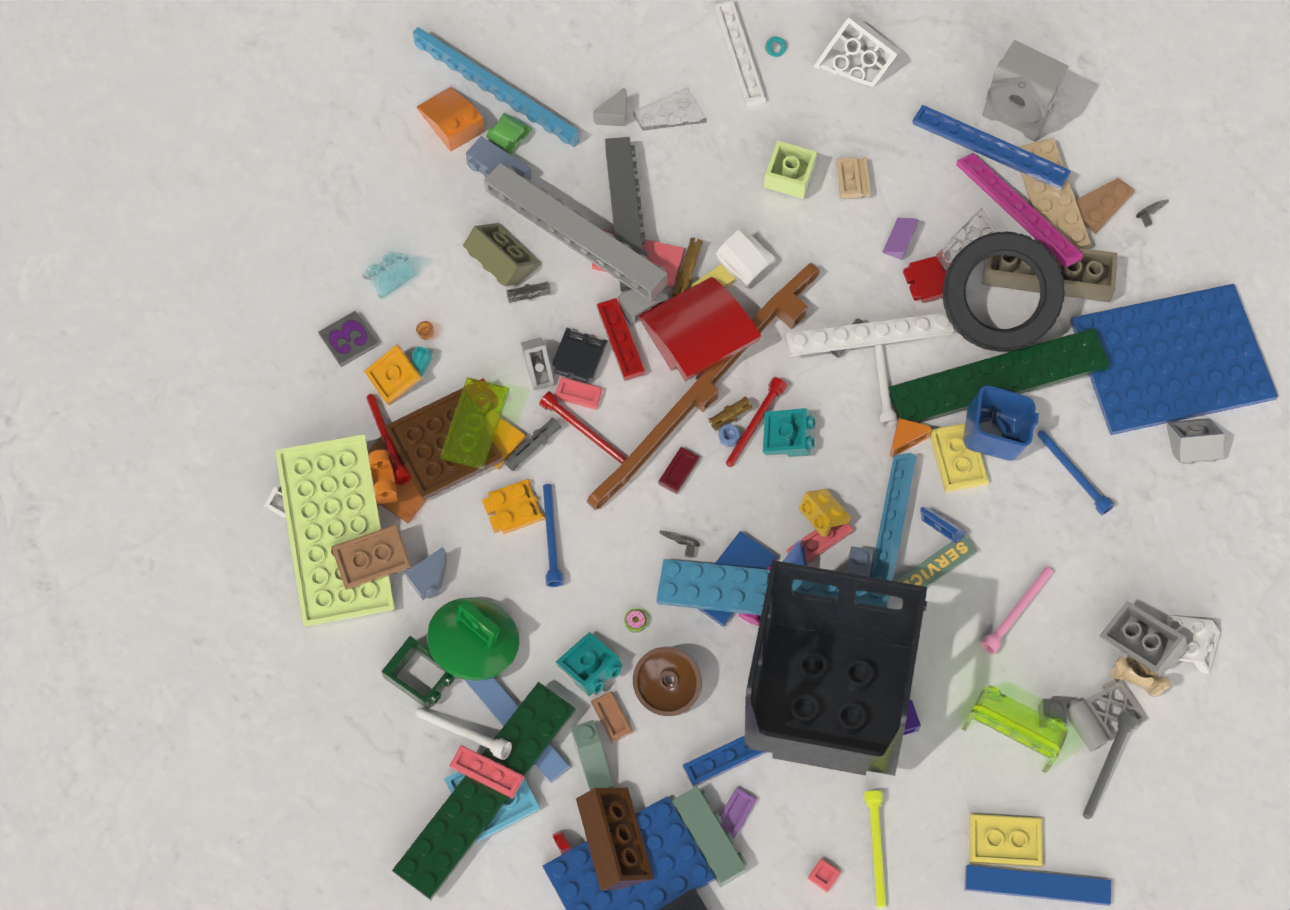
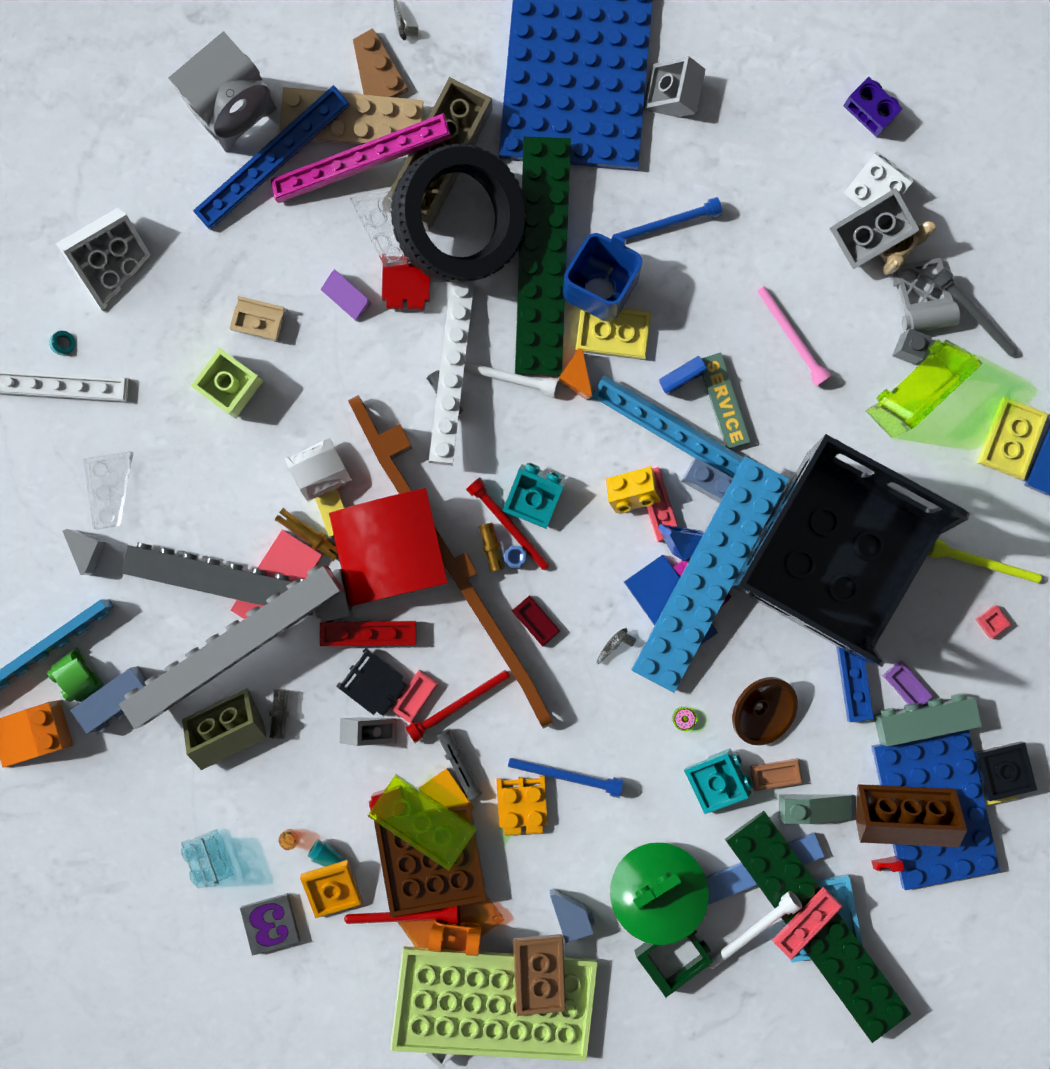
camera: 70 degrees left, 20 degrees up
(1255, 612) = (868, 110): none -> dark purple brick

